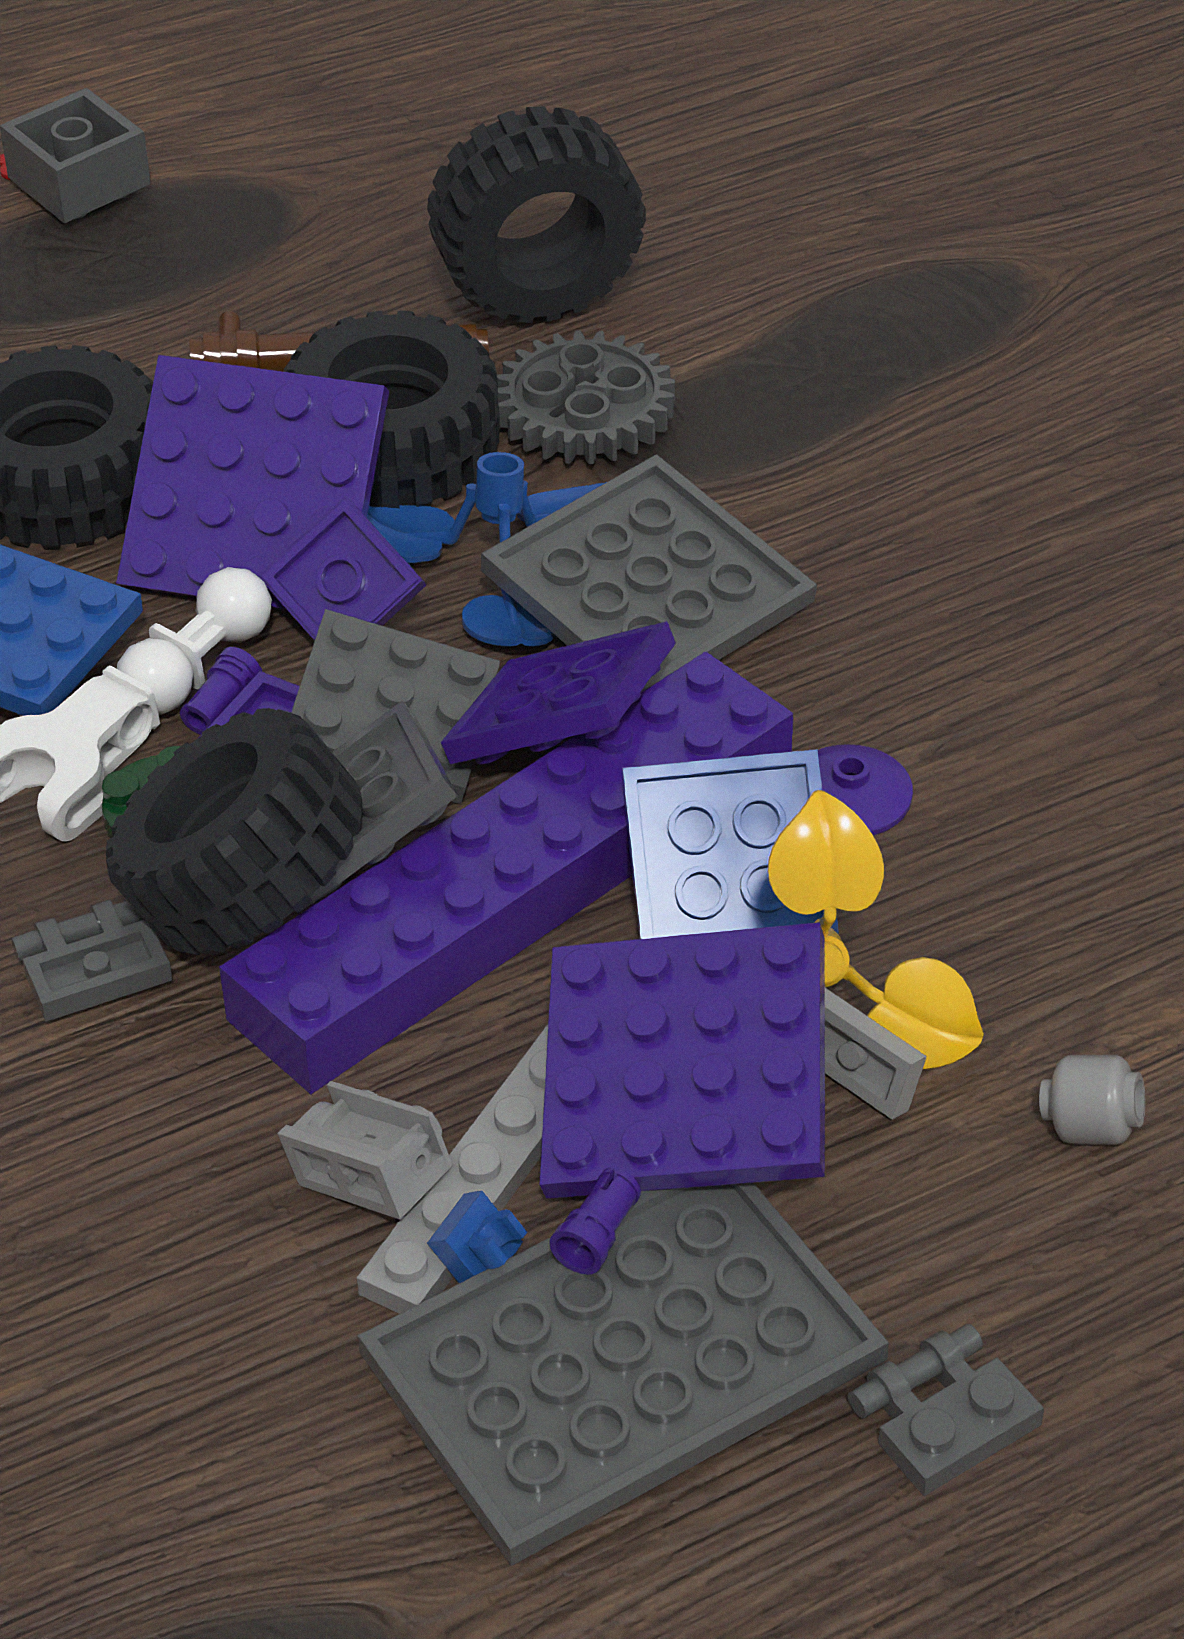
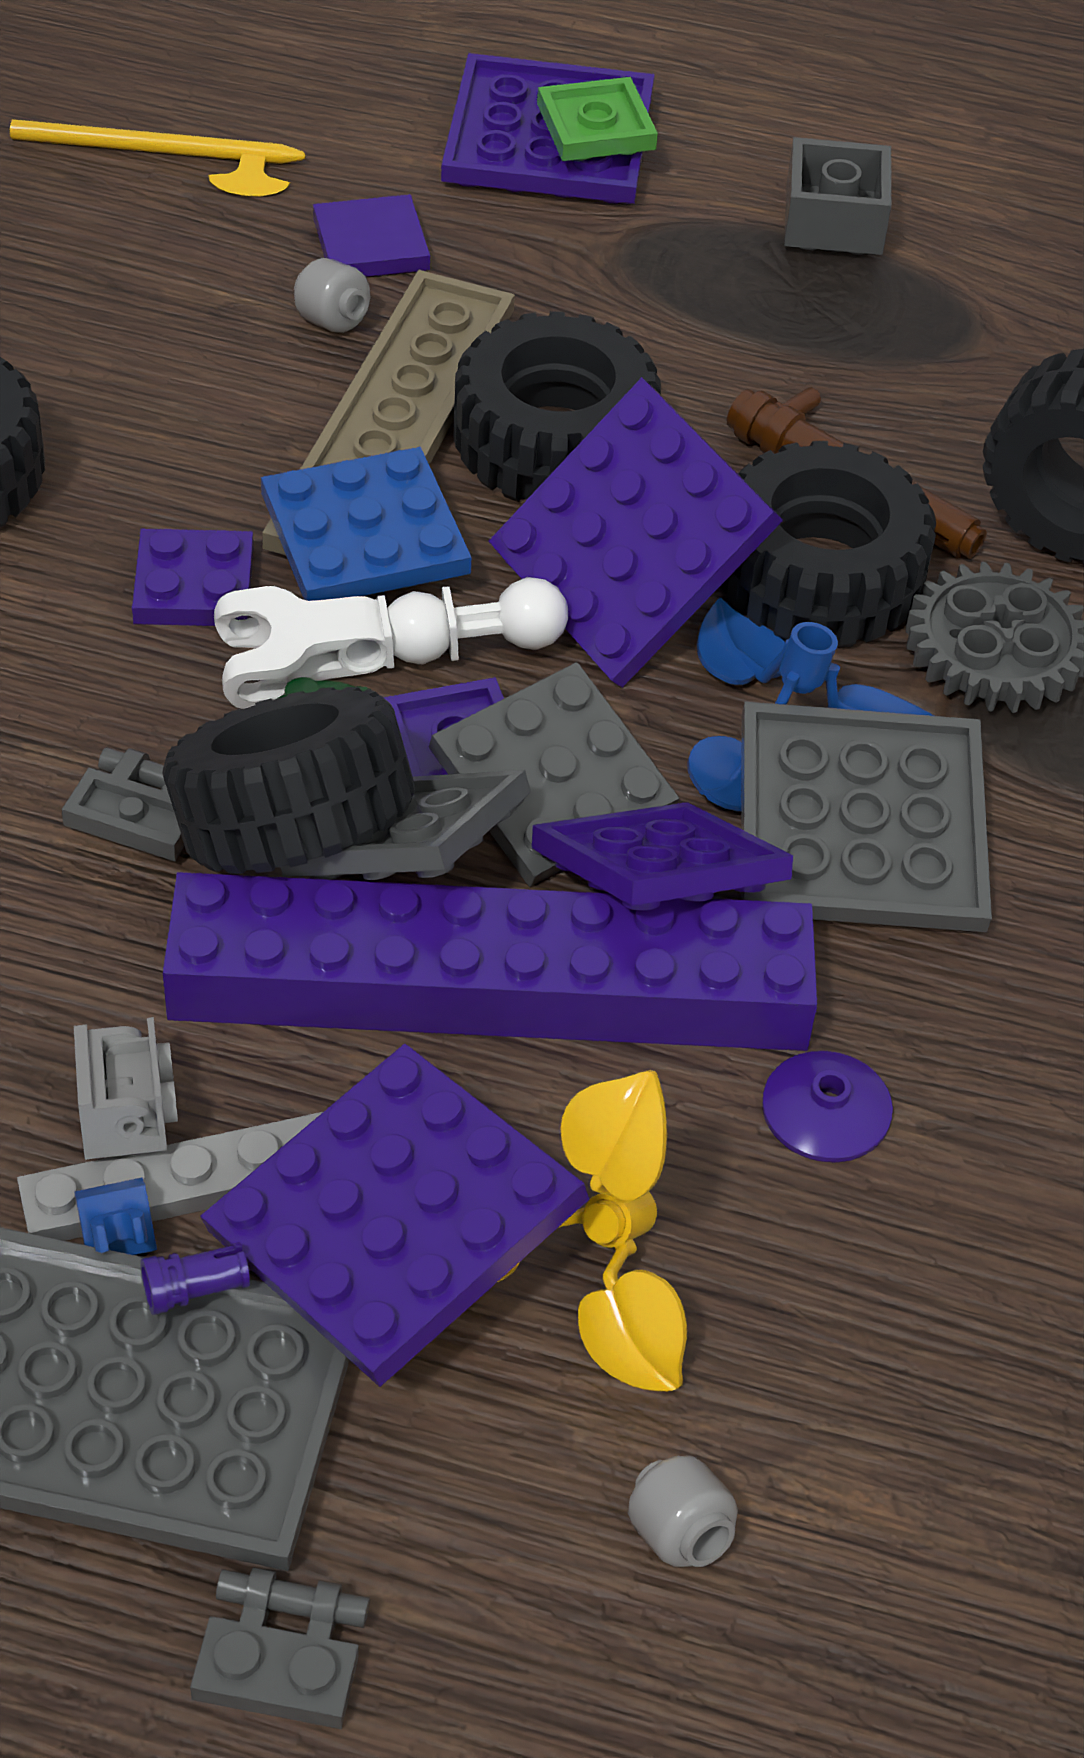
camera: 40 degrees right, 5 degrees up
(224, 681) = (470, 666): dark purple pin -> none
(344, 569) = (627, 643): dark purple tile -> none
(706, 840) = (625, 1024): plate -> none
(869, 1058) = (553, 1327): light grey plate -> none

